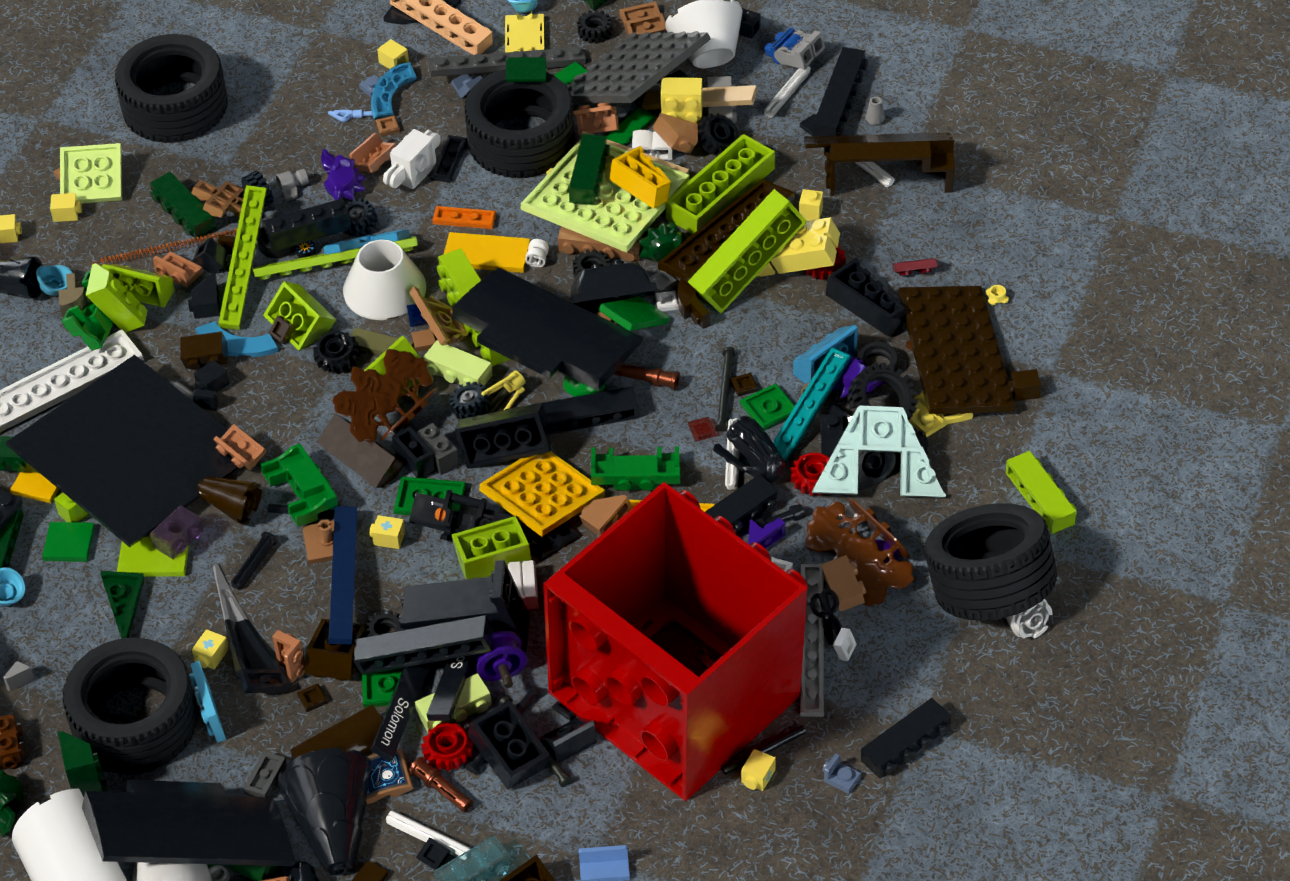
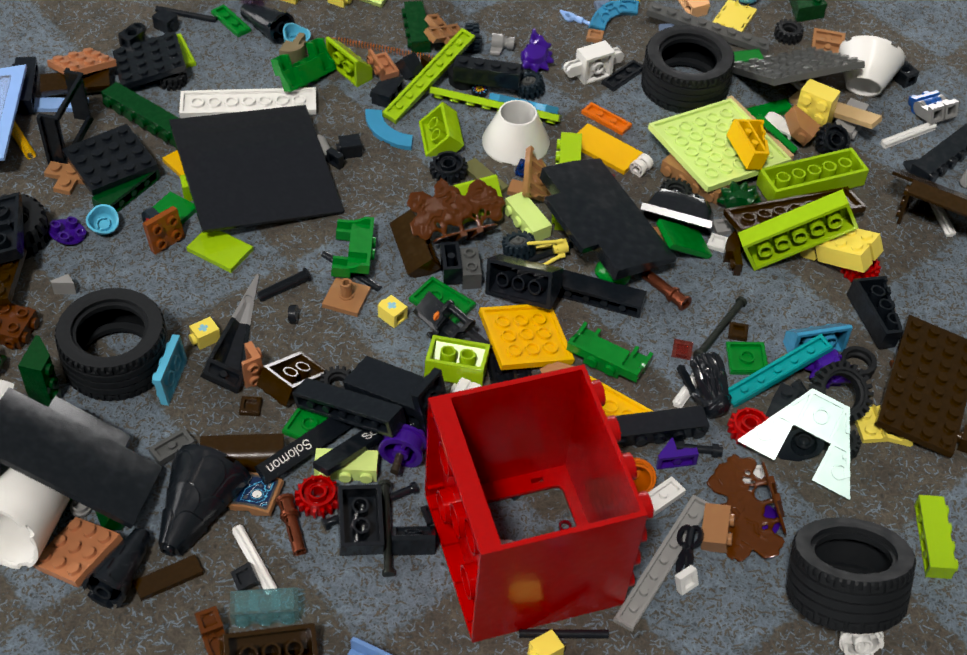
camera: 25 degrees right, 0 degrees up
(77, 564) = (162, 228): none -> dark orange plate
(115, 300) = (320, 64): lime slope -> none
(123, 595) = (178, 265): dark green wing -> none
(176, 532) = (244, 238): clear purple brick -> none
(202, 349) = (358, 122): dark brown brick -> none
(231, 496) = (299, 232): dark brown cone -> none
(241, 447) = (331, 201): nougat bracket -> none
(281, 329) = (422, 136): dark brown tile -> none
(287, 585) = (293, 314): none -> black tile
(343, 575) = (333, 326): dark blue tile -> none
(371, 154) = (567, 47): nougat bracket -> none
(526, 69) = (710, 31): dark green slope -> none
(588, 169) = (714, 120): dark green brick -> none
(597, 119) = (748, 92): nougat bracket -> none
(657, 153) = (772, 129): none -> green tile
(811, 204) = (875, 221): light yellow brick -> none
(923, 265) = (941, 308): dark red plate -> none

